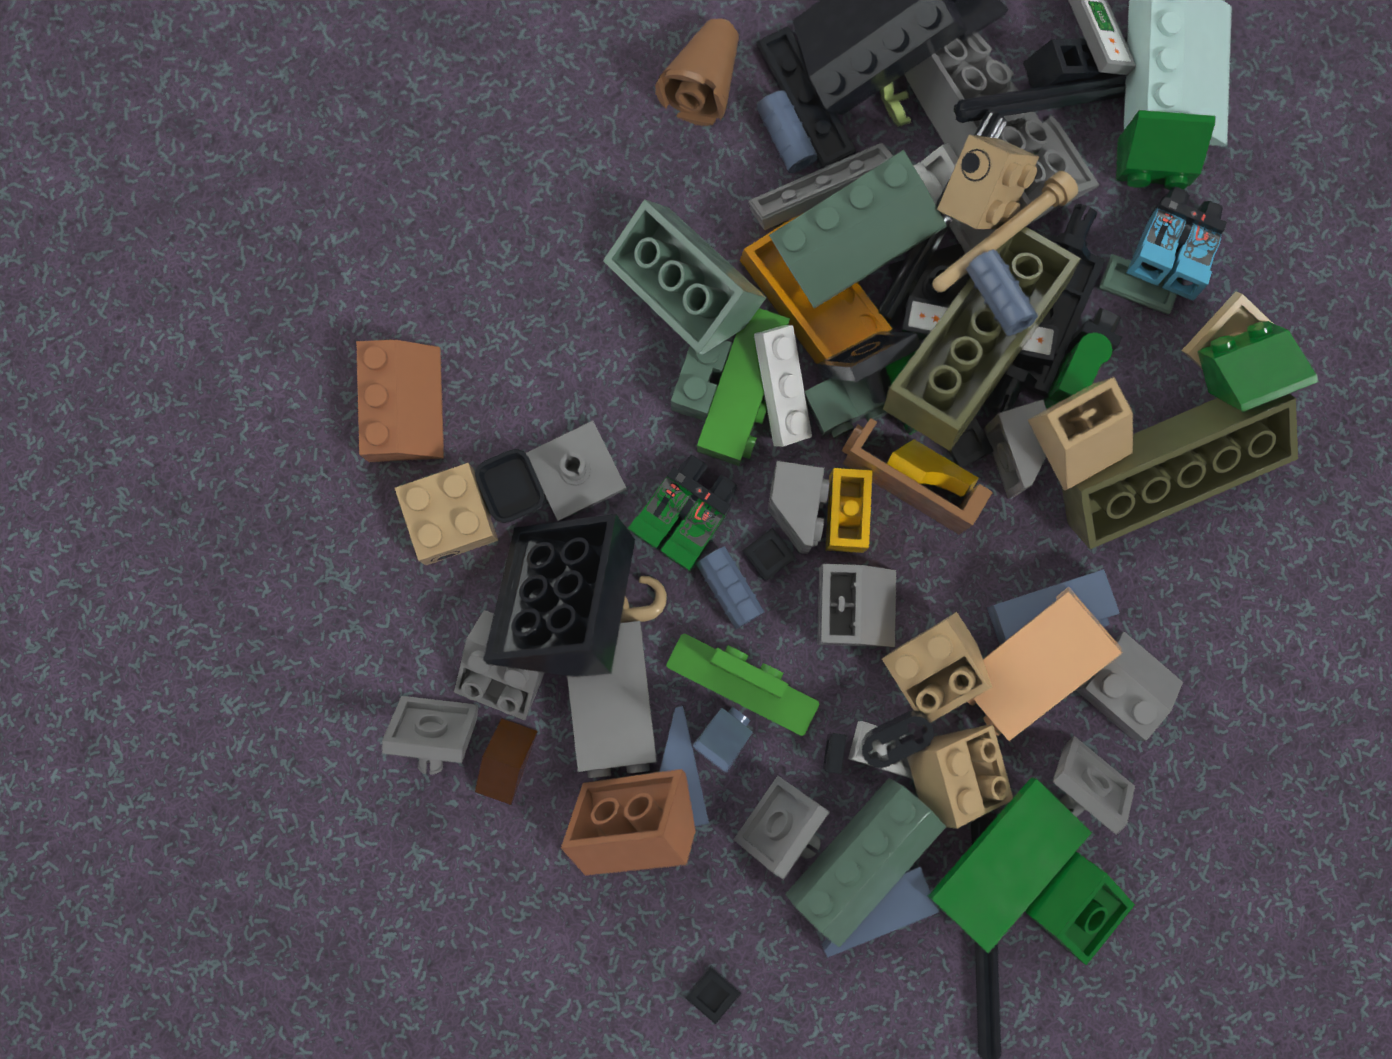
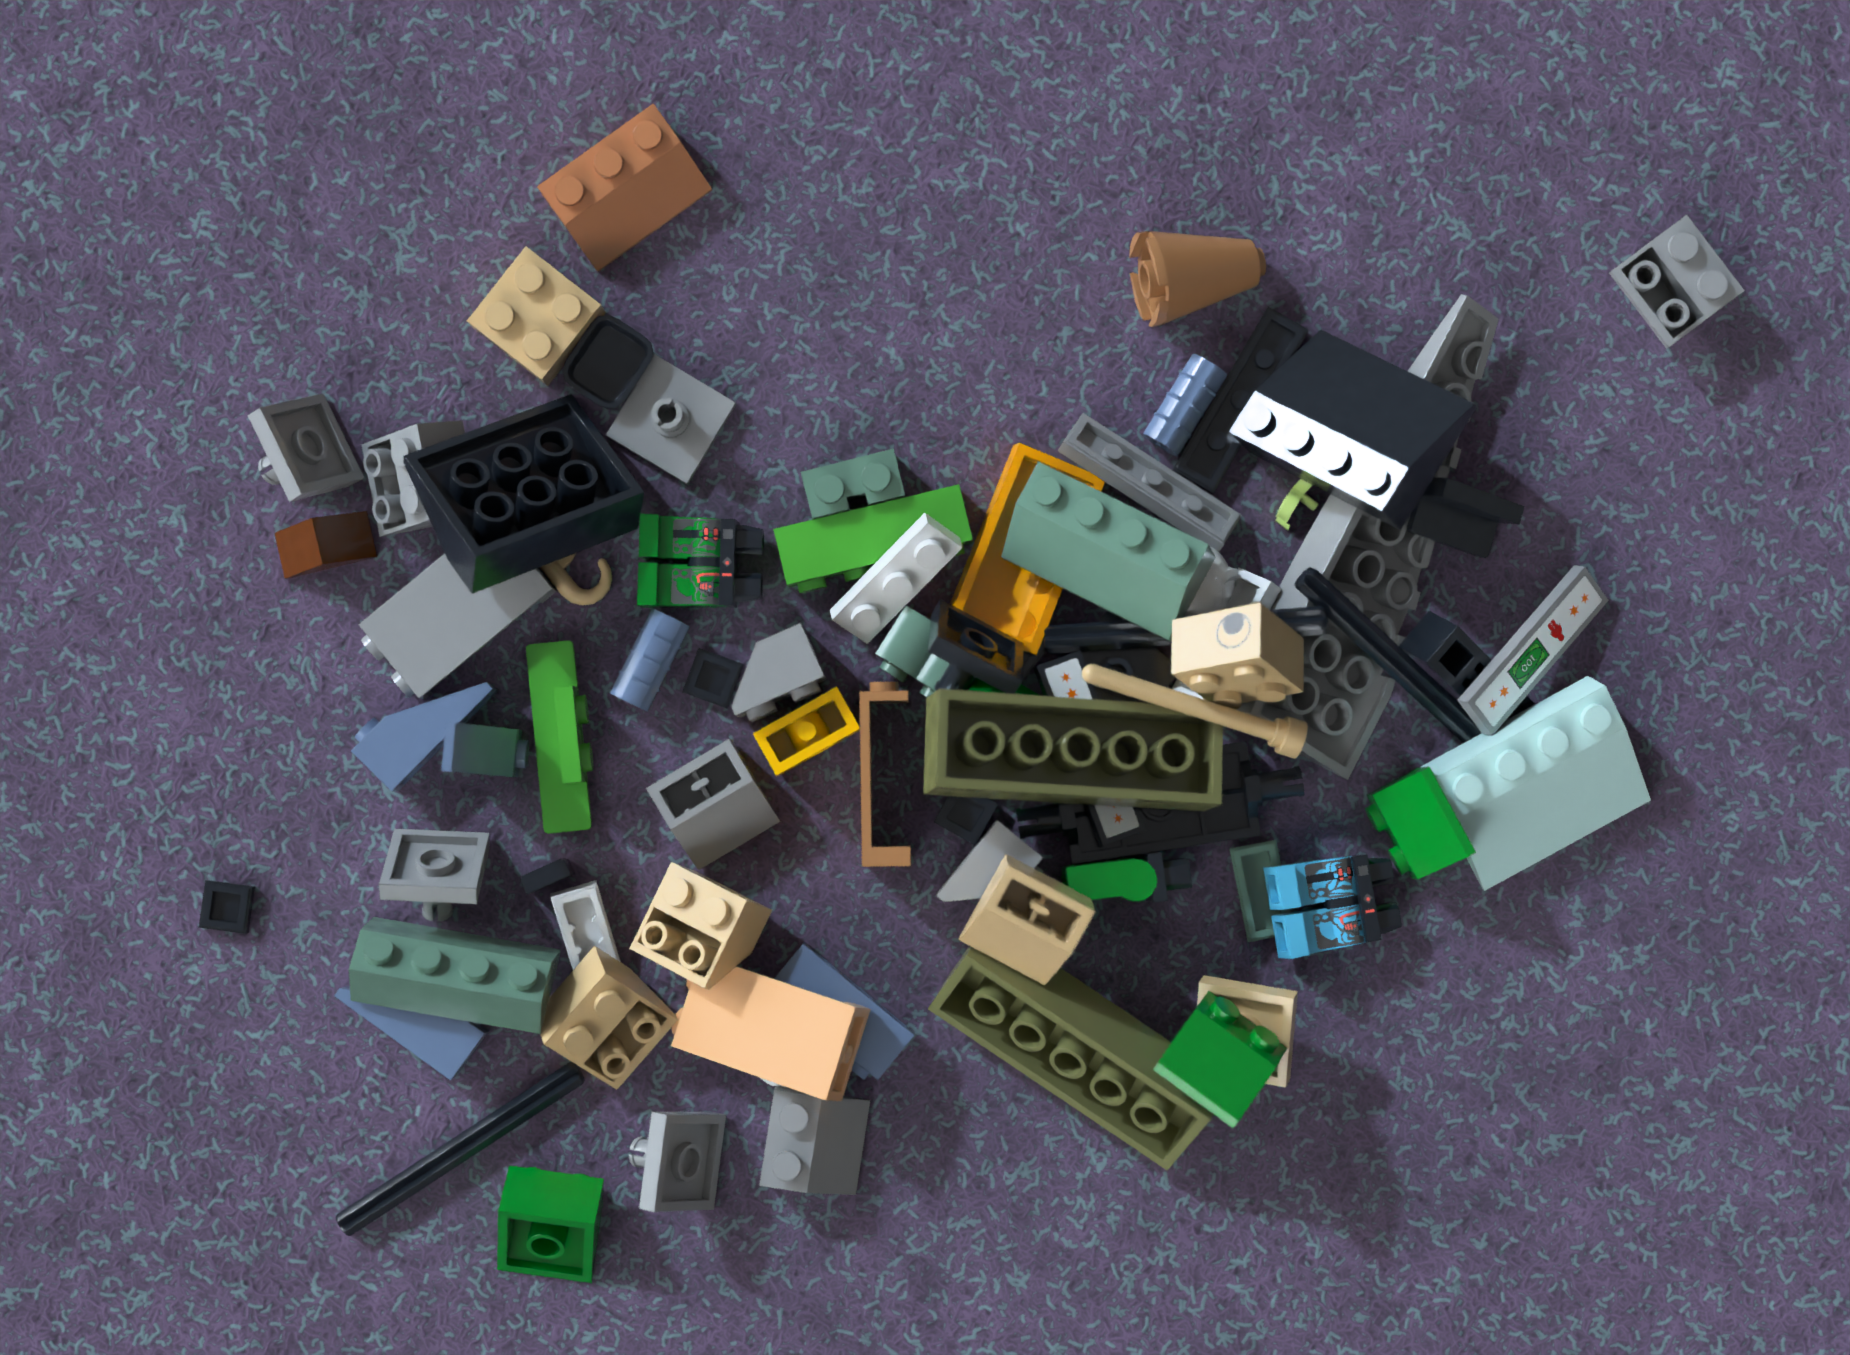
camera: 60 degrees right, 5 degrees up
(631, 824) = (339, 712): nougat slope -> none
(683, 277) = (942, 399): sand green slope -> none
(901, 747) = (592, 938): black beam -> none
(931, 468) = (899, 776): yellow tile -> none
(1001, 292) = (1117, 742): sand blue axle -> none
(1009, 864) = (544, 1123): green tile -> none

